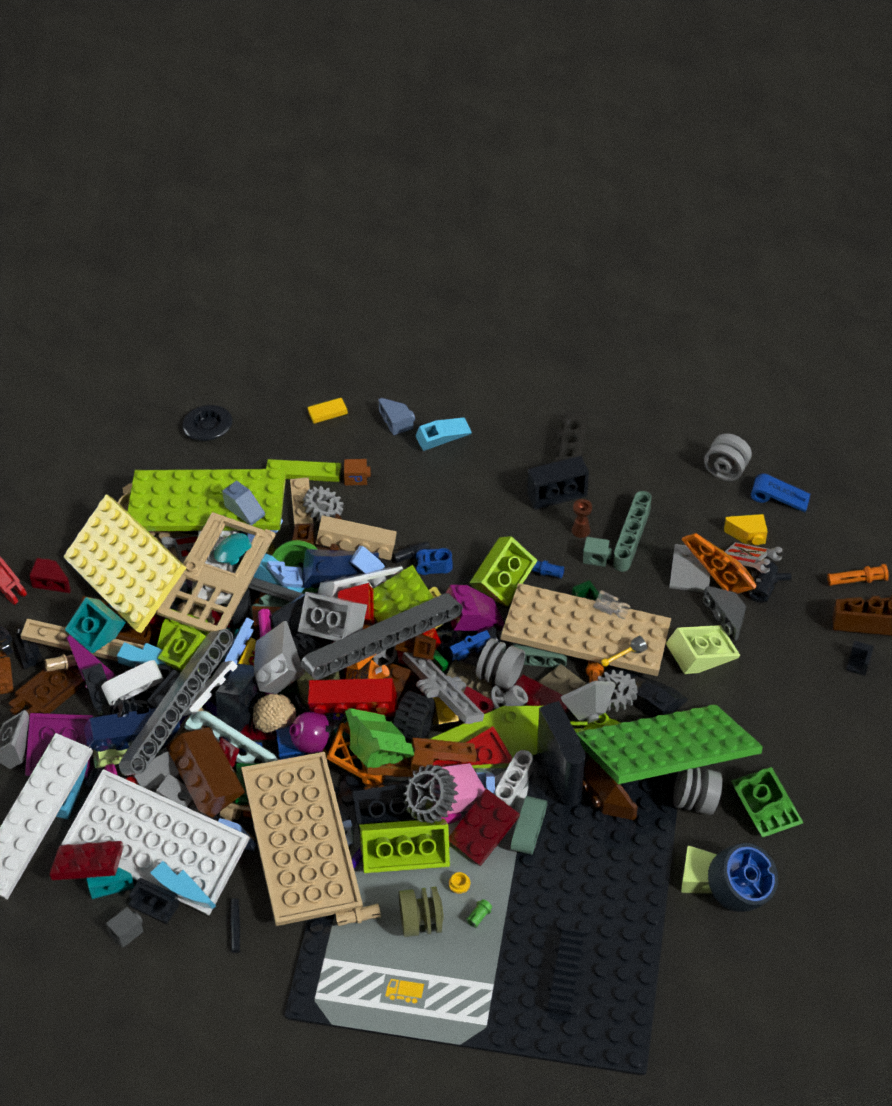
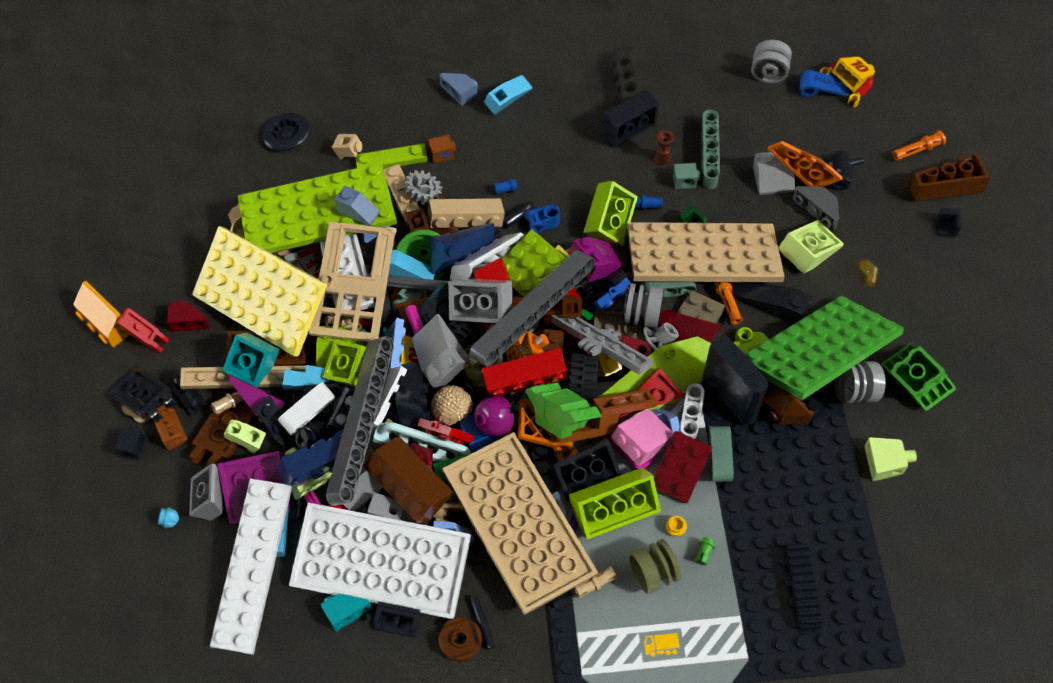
camera: 15 degrees left, 10 degrees up
(66, 696) = (244, 435): none -> yellowish green leg
(87, 860) = (321, 598): dark red plate -> none
(125, 927) = (379, 653): dark grey brick -> none
(181, 885) = (422, 599): medium azure slope -> none
(213, 945) = (465, 628): none -> reddish brown plate
(232, 548) = (360, 253): teal dish -> none
(258, 735) = (445, 432): none -> red plate
(265, 449) = (347, 145): none -> tan brick
(286, 575) = (417, 266): light blue slope -> none
(327, 410) = (393, 95): yellow tile -> none
(365, 560) = (486, 234): light blue slope -> none
(408, 522) = (506, 186): none -> blue pin
(440, 788) = (620, 464): dark grey gear -> none
(589, 700) = (738, 322): light grey slope -> none
(608, 604) = (719, 225): clear plate -> none
(624, 690) = (752, 305): light grey gear -> none
(637, 645) = (759, 258): hinge -> none
(743, 877) = (929, 456): wheel -> none
(747, 529) = (809, 124): yellow slope -> none
(753, 555) = (826, 148): light grey flag -> none
(757, 688) = (870, 271): none -> clear yellow arm
(814, 488) = (854, 74): none -> yellow torso

